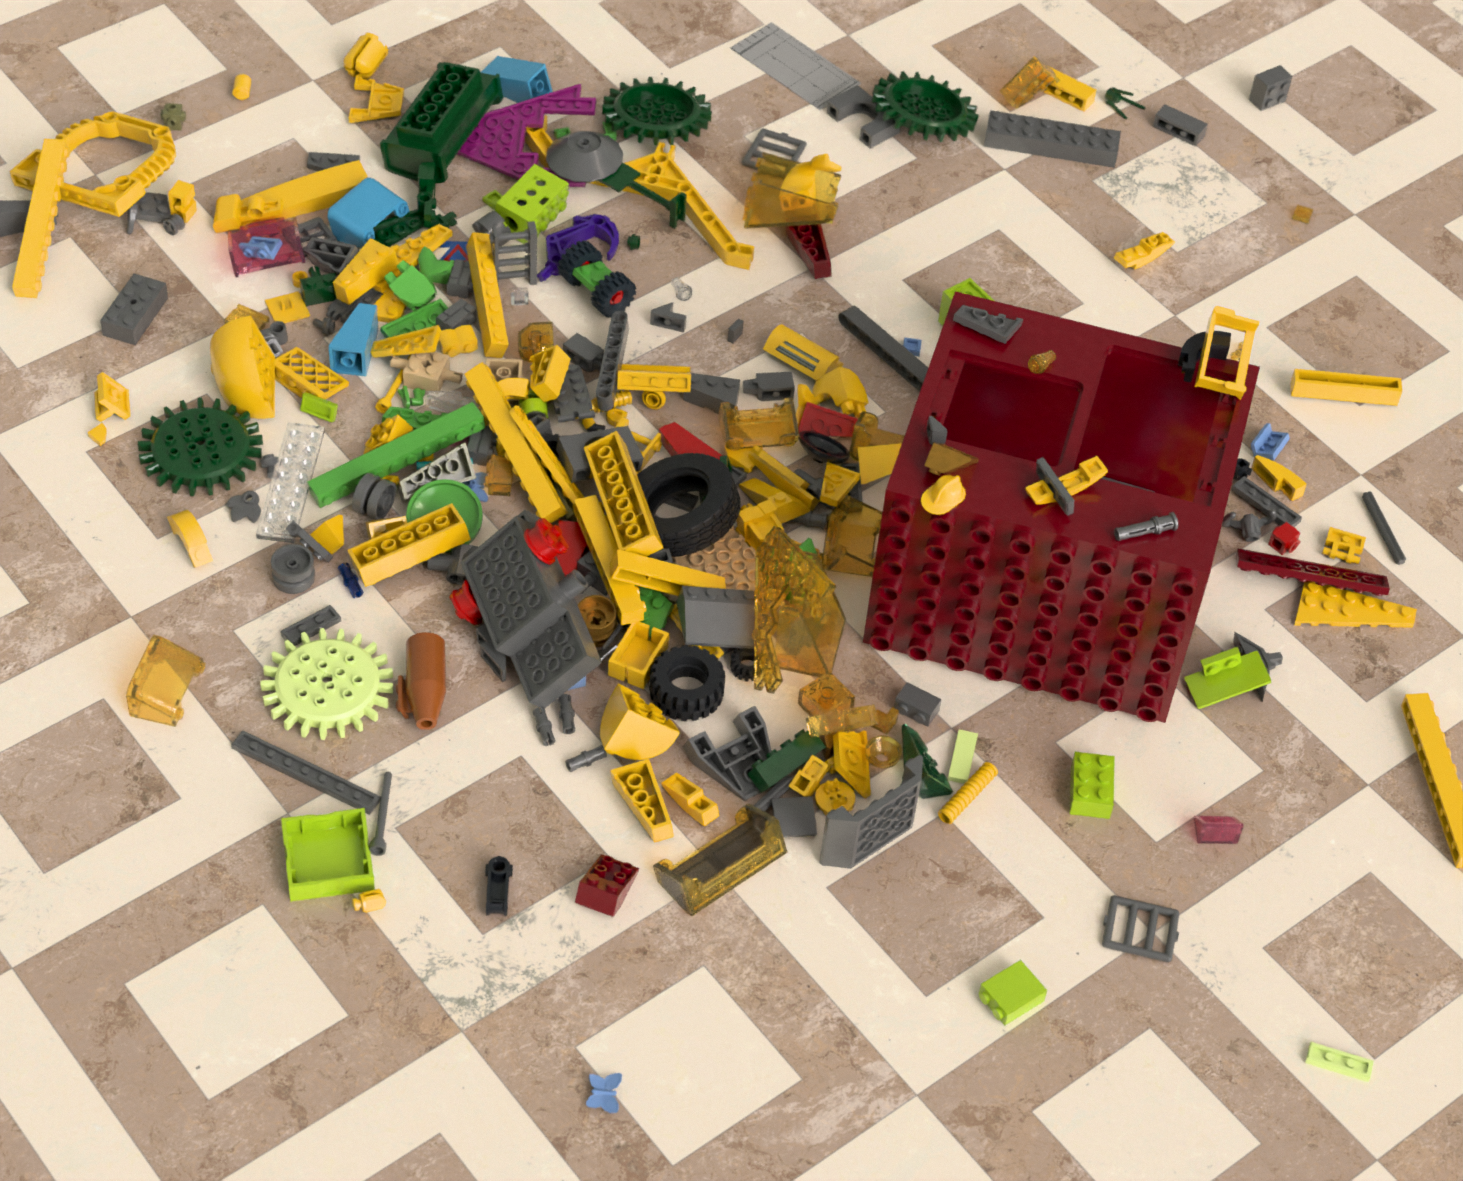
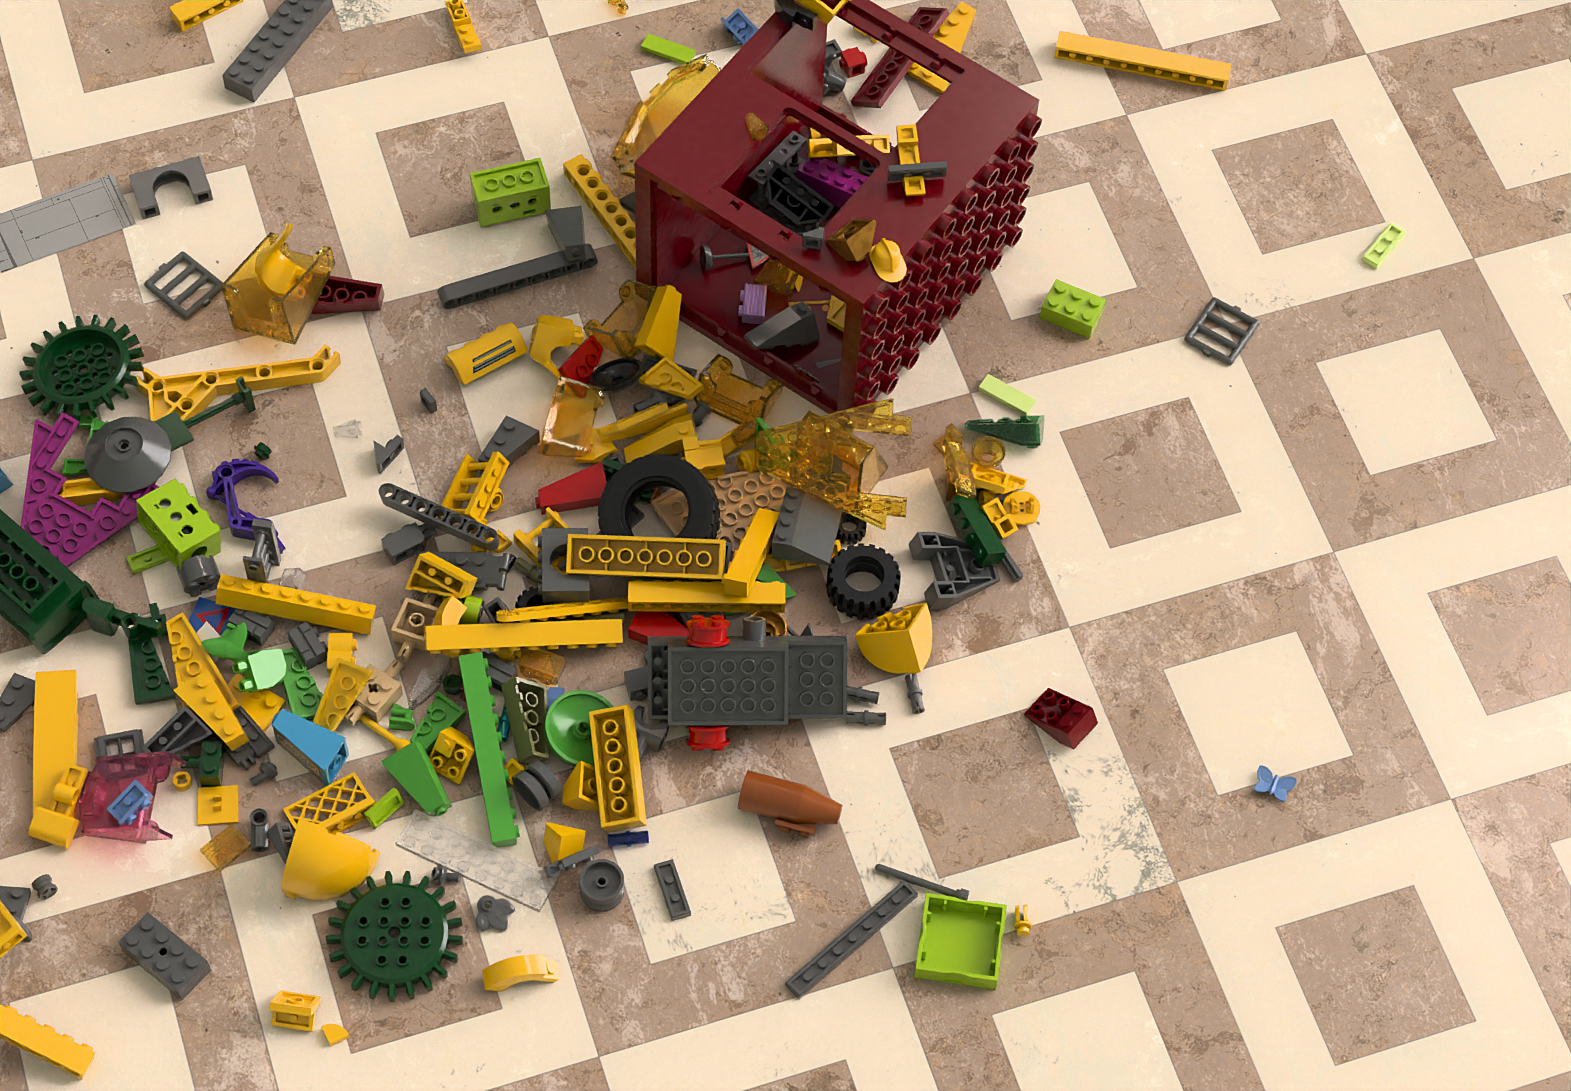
camera: 70 degrees left, 10 degrees up
(162, 681) = (708, 1037): clear yellow windscreen -> none
(182, 200) = (19, 866): yellow brick -> none
(336, 708) = (754, 925): yellowish green gear -> none
(353, 420) = (417, 775): none -> bright green slope
(361, 210) = (124, 686): dark azure windscreen -> none
(494, 658) = (764, 735): dark grey slope -> none
(498, 885) = (1039, 807): black piece -> none
(534, 339) = (375, 578): clear yellow brick -> none
(609, 289) = (315, 497): black plate -> none
(637, 654) = (815, 607): yellow piece -> none
(642, 794) = (982, 656): yellow wedge -> none
(691, 799) = (988, 621): yellow slope -> none
(723, 861) = (1062, 617): windscreen -> none
(771, 386) = (515, 392): dark grey hinge -> none
(795, 816) = (1034, 546): dark grey slope -> none
(825, 696) = (918, 476): clear yellow brick -> none
(856, 837) = (1065, 446): dark grey slope -> none
(912, 345) = (505, 259): medium blue tile -> none
(917, 704) = (943, 408): dark grey brick -> none
(925, 106) = (167, 127): dark green gear -> none
(967, 793) = (1049, 404): yellow piece -> none
(993, 326) = (694, 148): dark grey wing -> none
(1012, 992) = (1261, 445): lime brick -> none
(1027, 82) = (198, 29): clear yellow wedge -> none
(1155, 525) = (979, 117): dark grey pin -> none
(1217, 829) = (1141, 235): clear pink slope -> none

